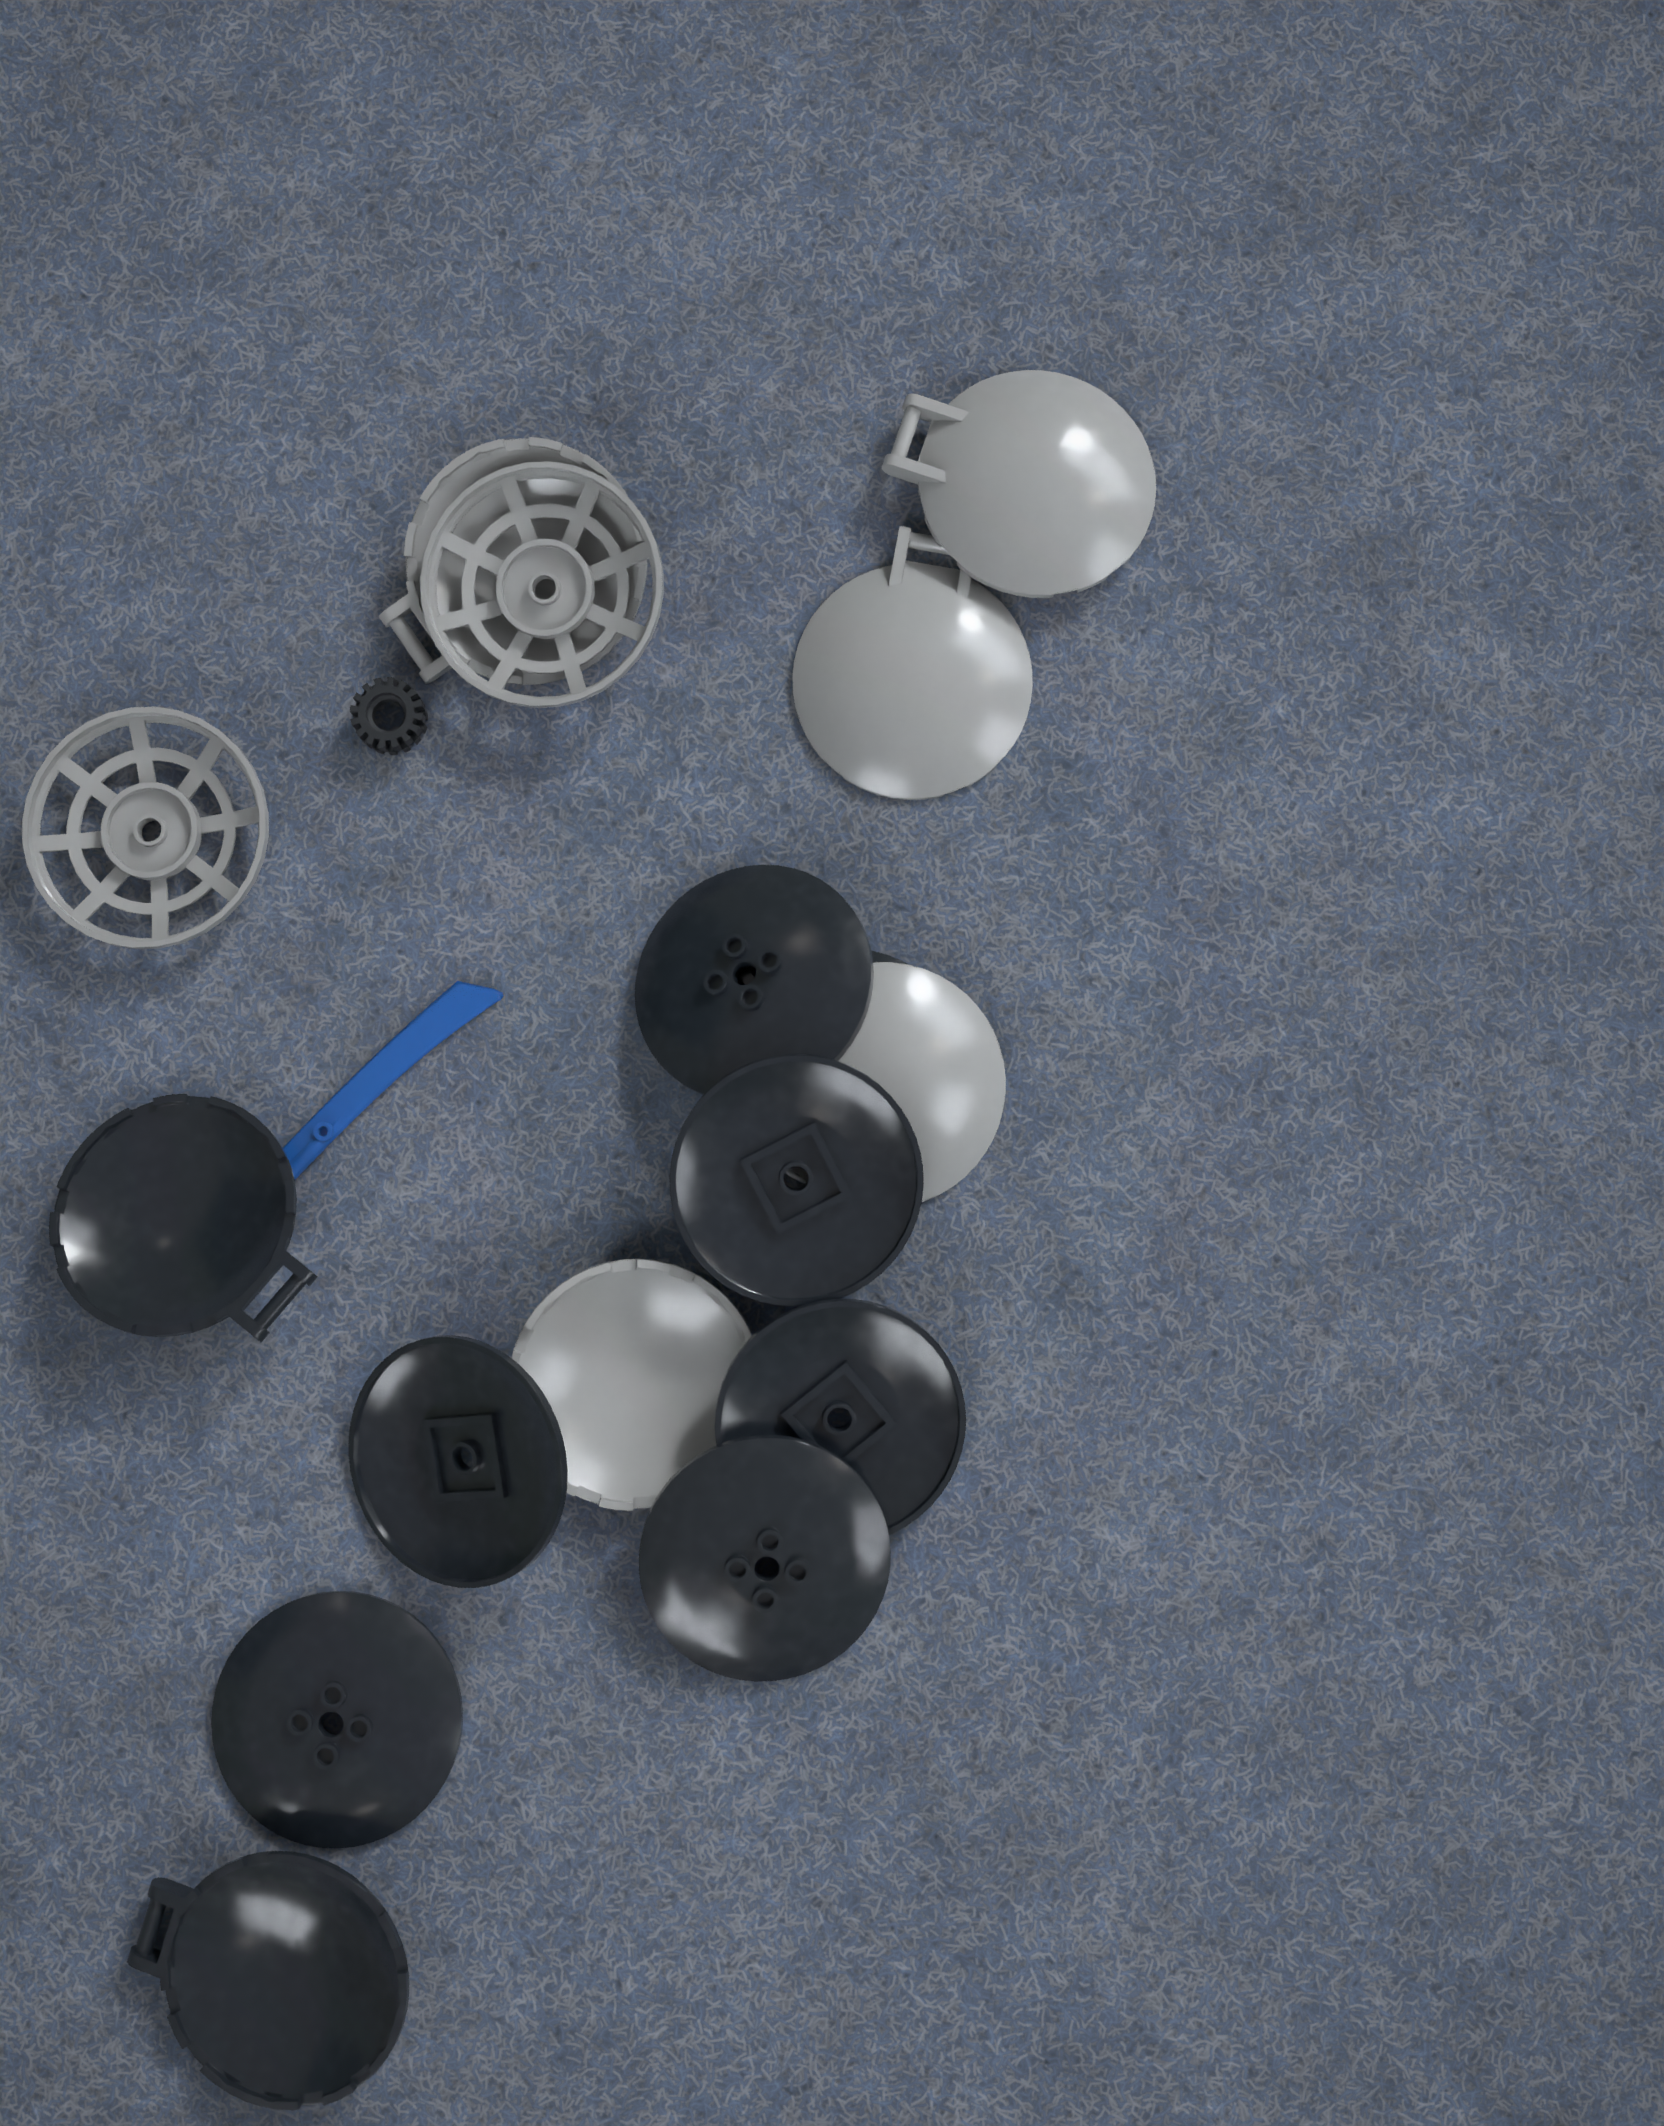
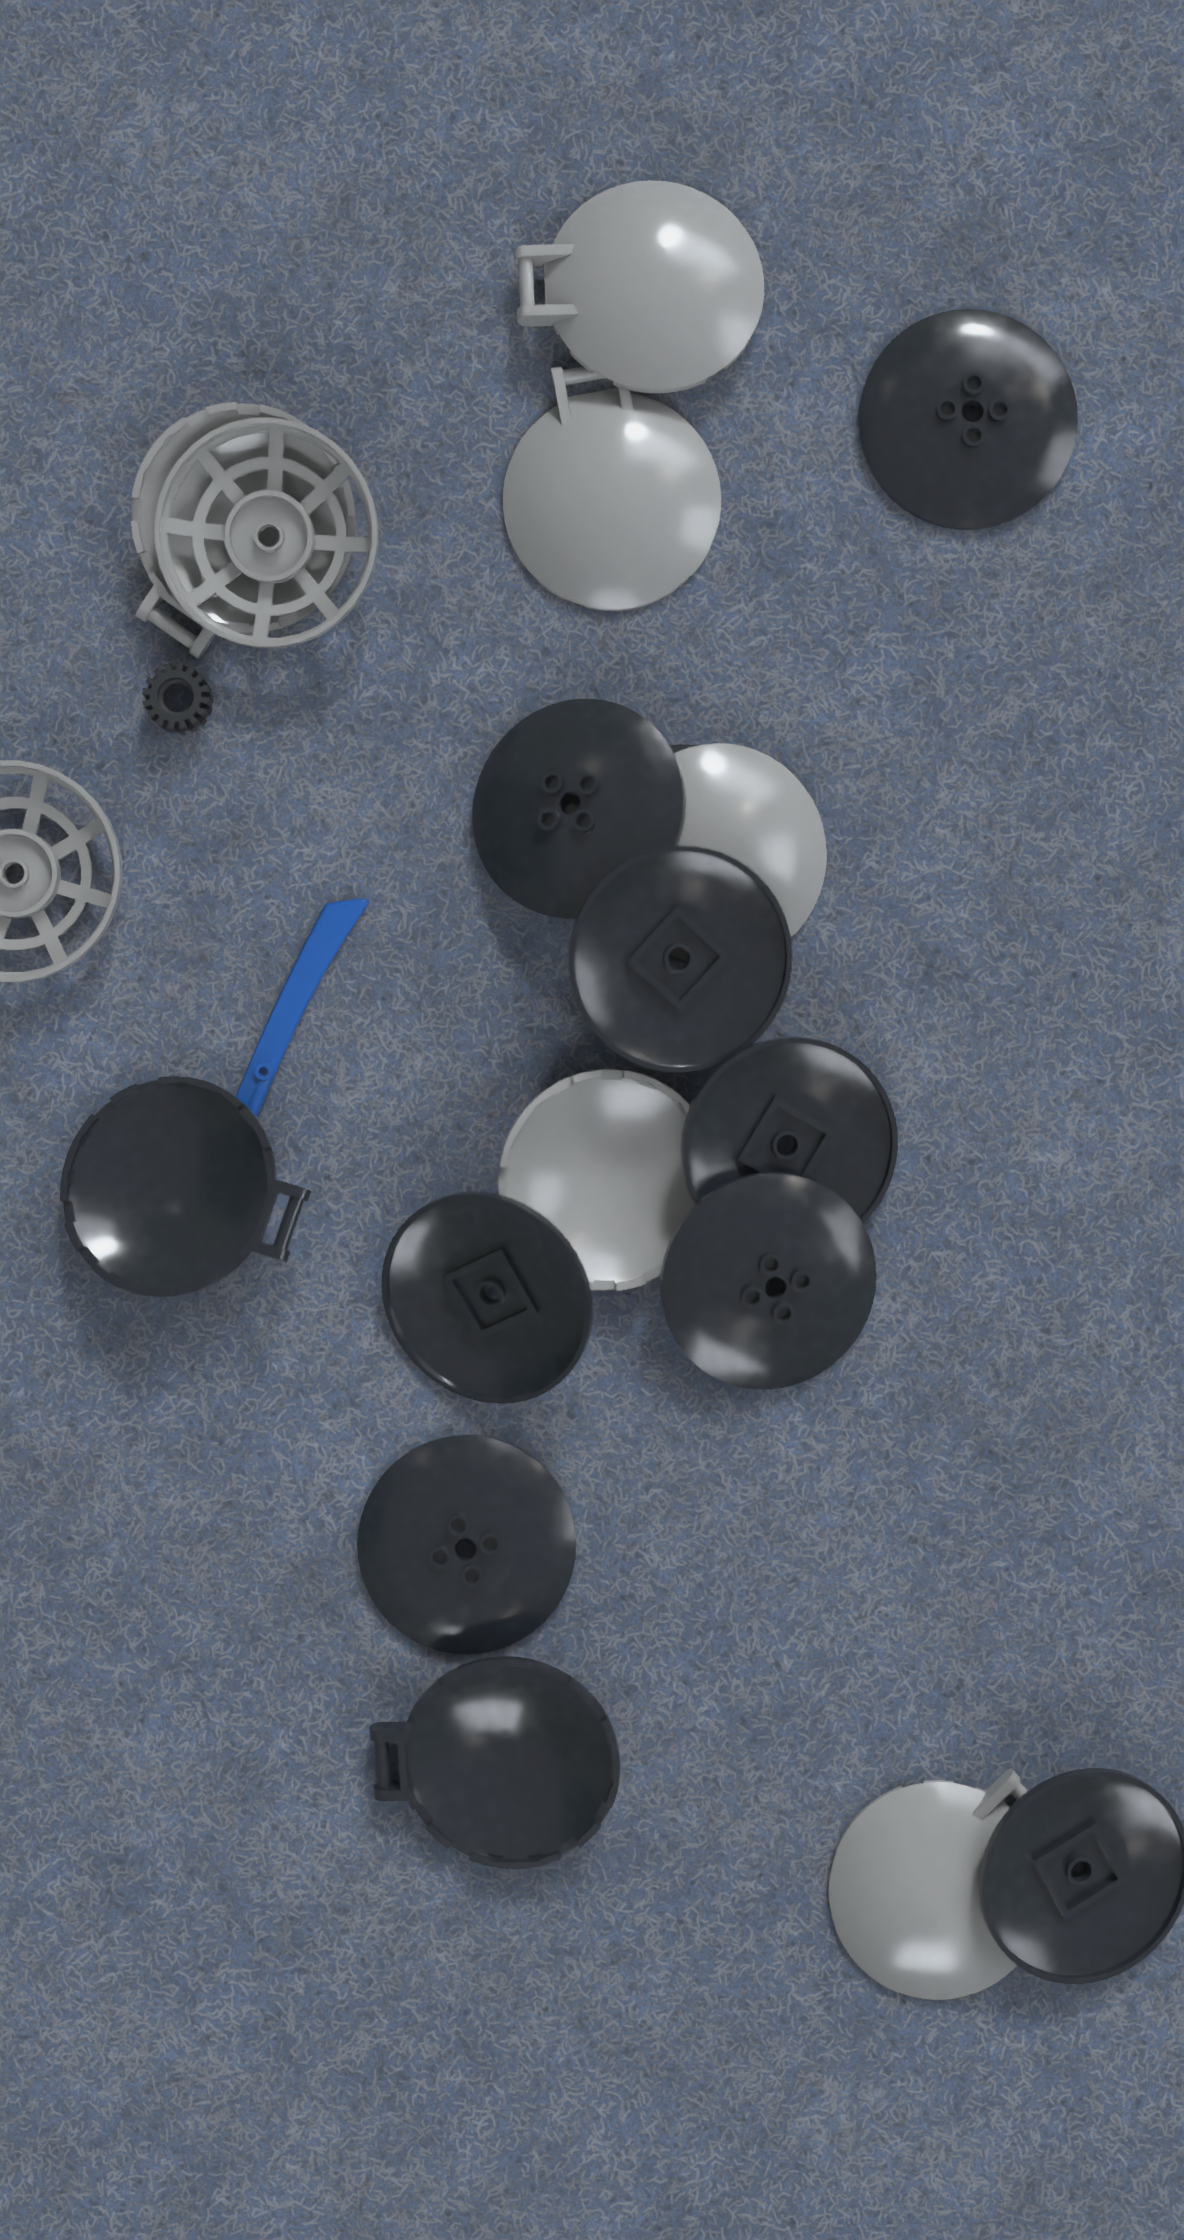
camera: 25 degrees left, 5 degrees up
(1301, 789) = (960, 469): none -> black dish

